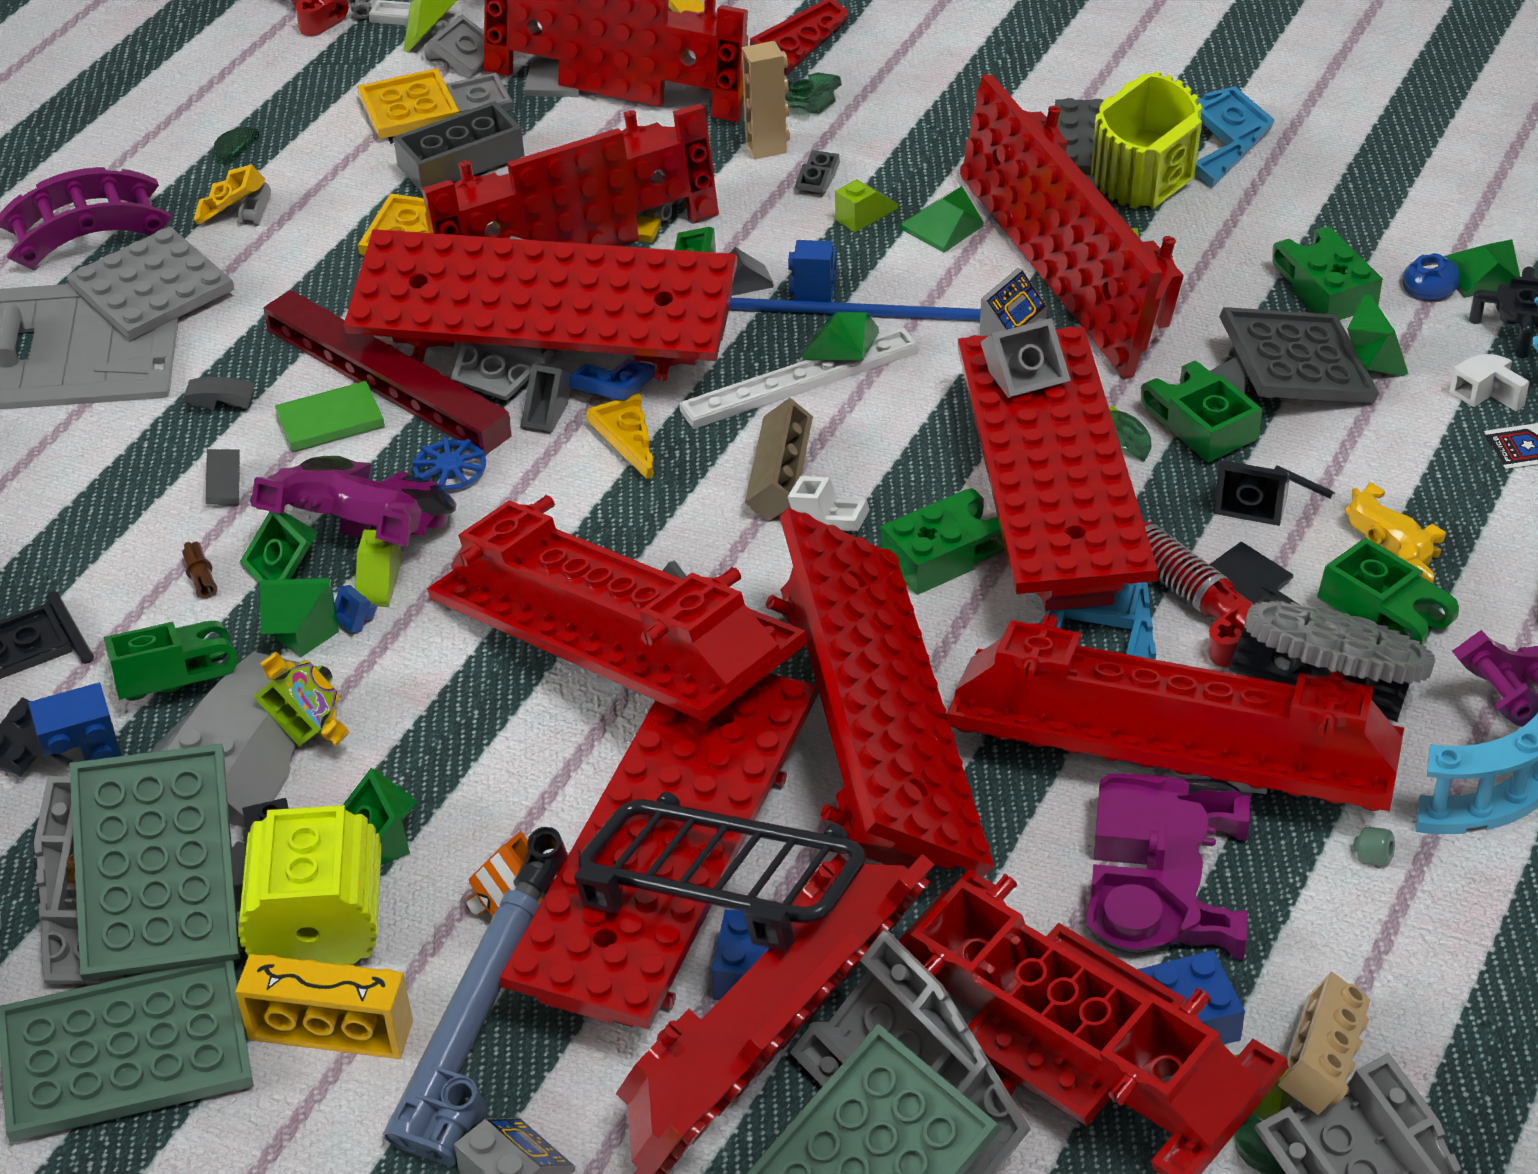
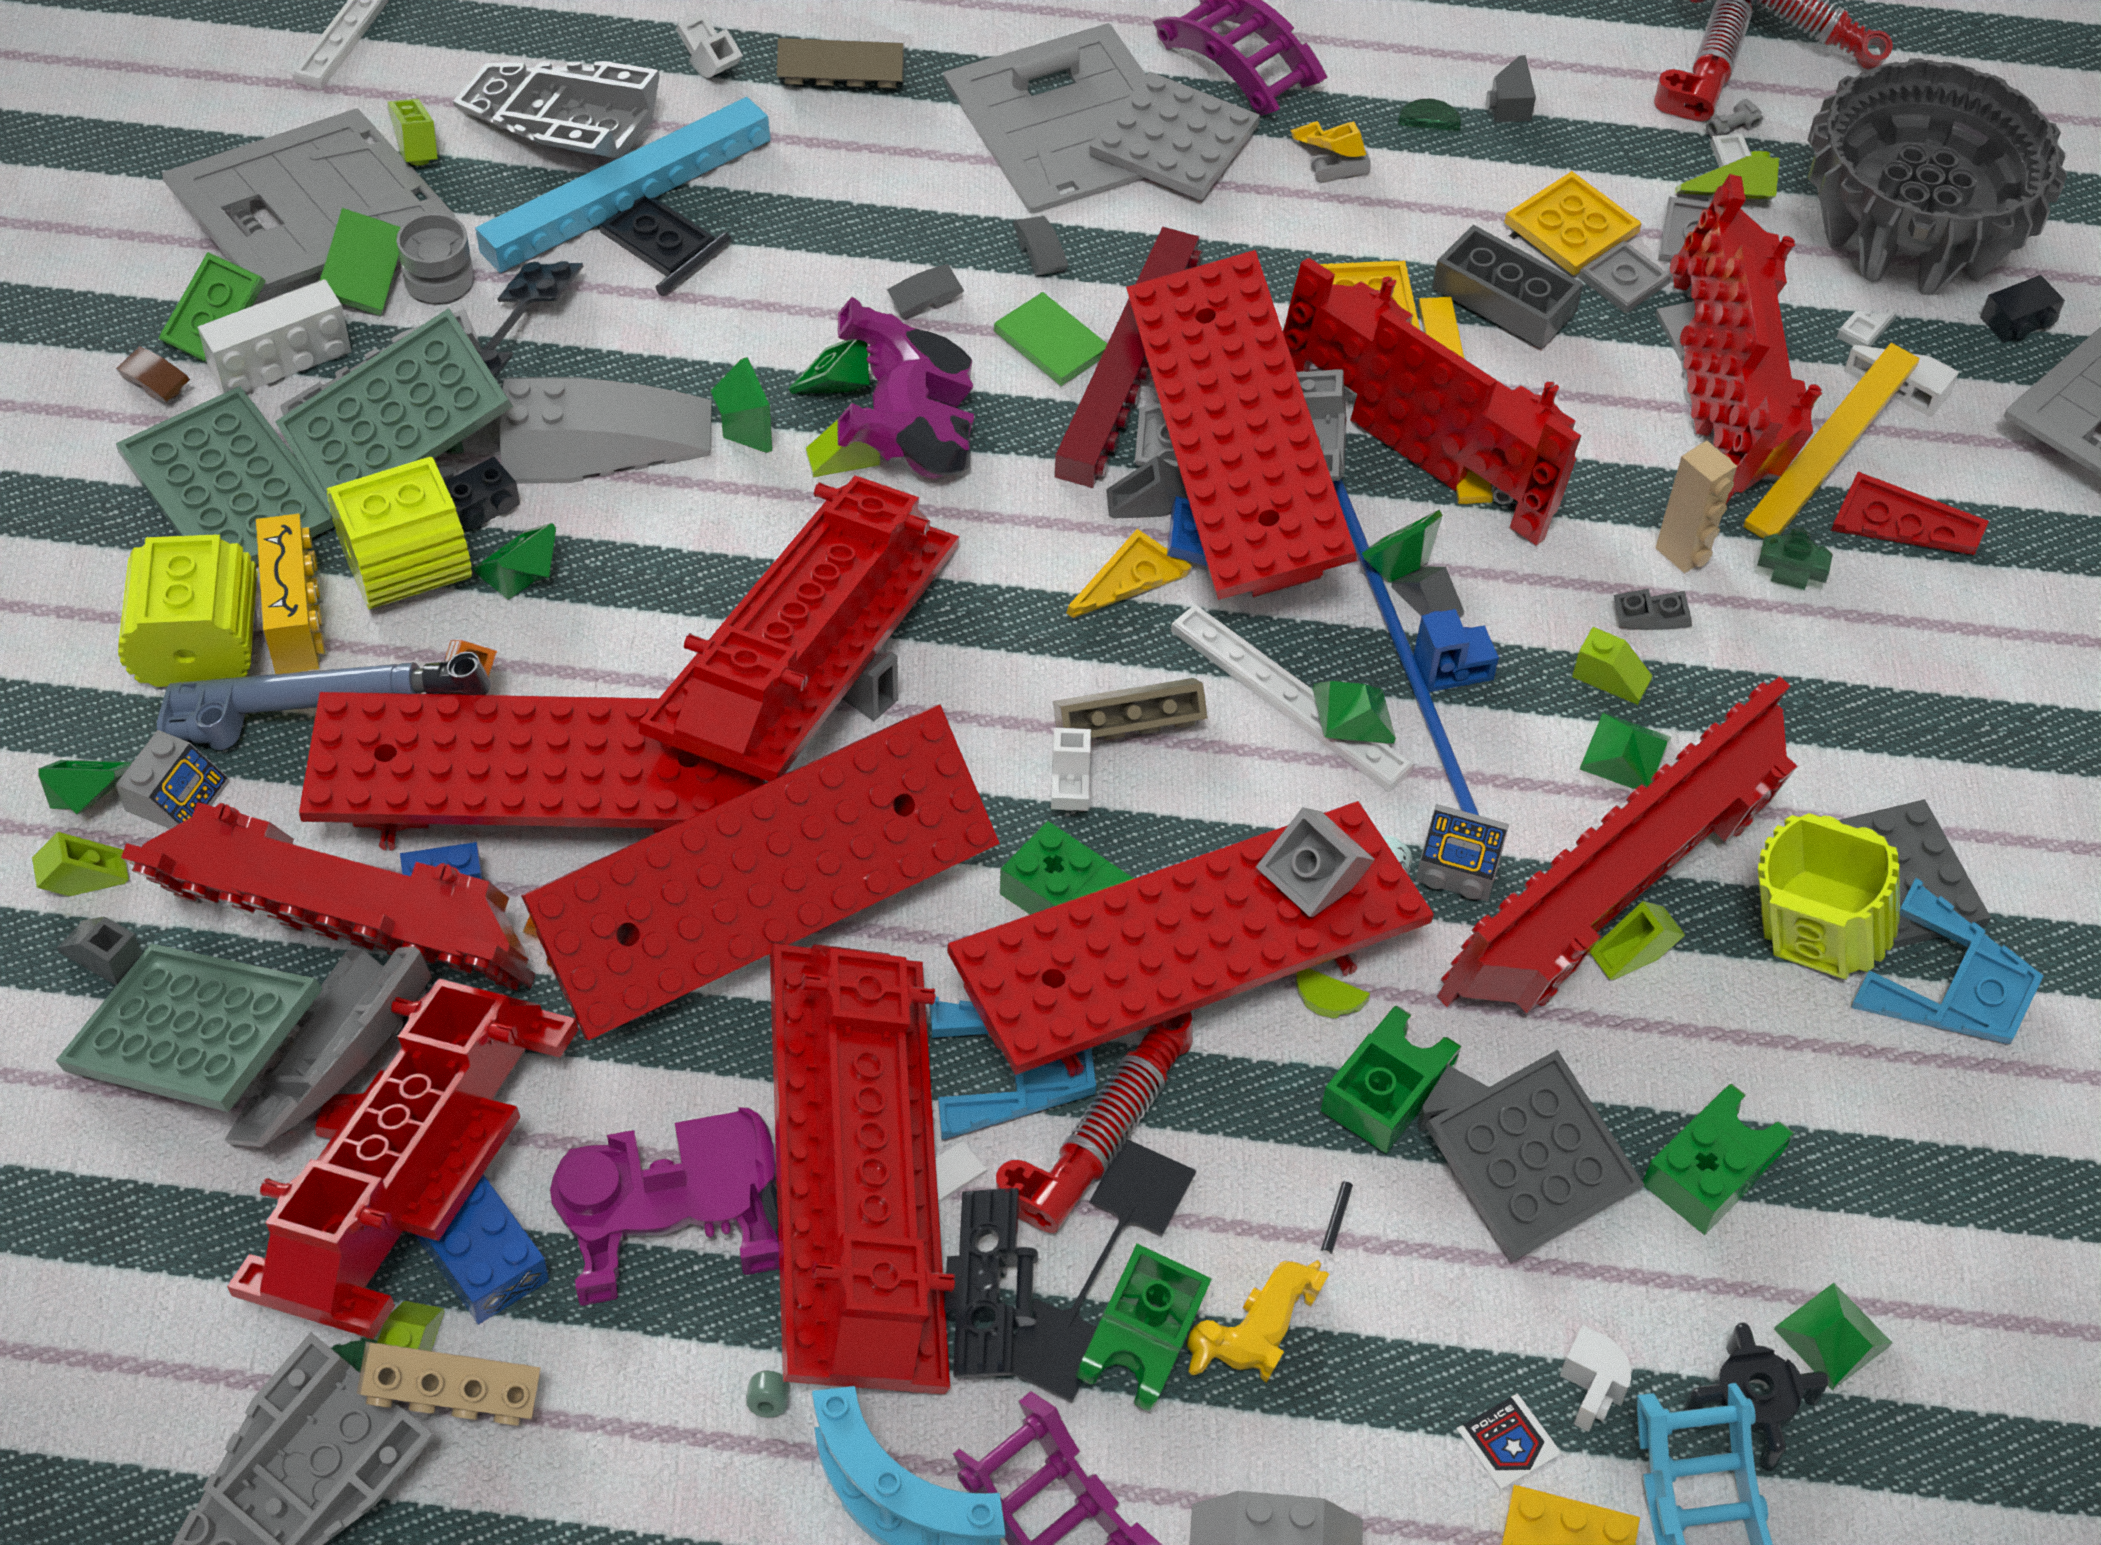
camera: 65 degrees right, 10 degrees up
(75, 721) = (547, 309): blue brick -> none
(167, 657) = (658, 336): green brick -> none
(199, 569) = (796, 321): reddish brown axle -> none
(248, 92) = (1512, 93): none -> dark grey slope
(301, 699) = (638, 448): torso -> none
(315, 1083) = (188, 610): none -> neon yellow piece
(353, 608) = (785, 448): blue tile -> none
(450, 464) = (1021, 452): blue wheel -> none
(766, 919) = (417, 722): black bar -> none
(1132, 434) = (1324, 1015): clear green tile -> none
(1251, 492) = (1273, 1157): black slope -> none
(1339, 642) = (1003, 1276): light grey gear -> none
(1375, 339) = (1606, 1233): green slope -> none
(1434, 282) = (1781, 1291): blue piece -> none

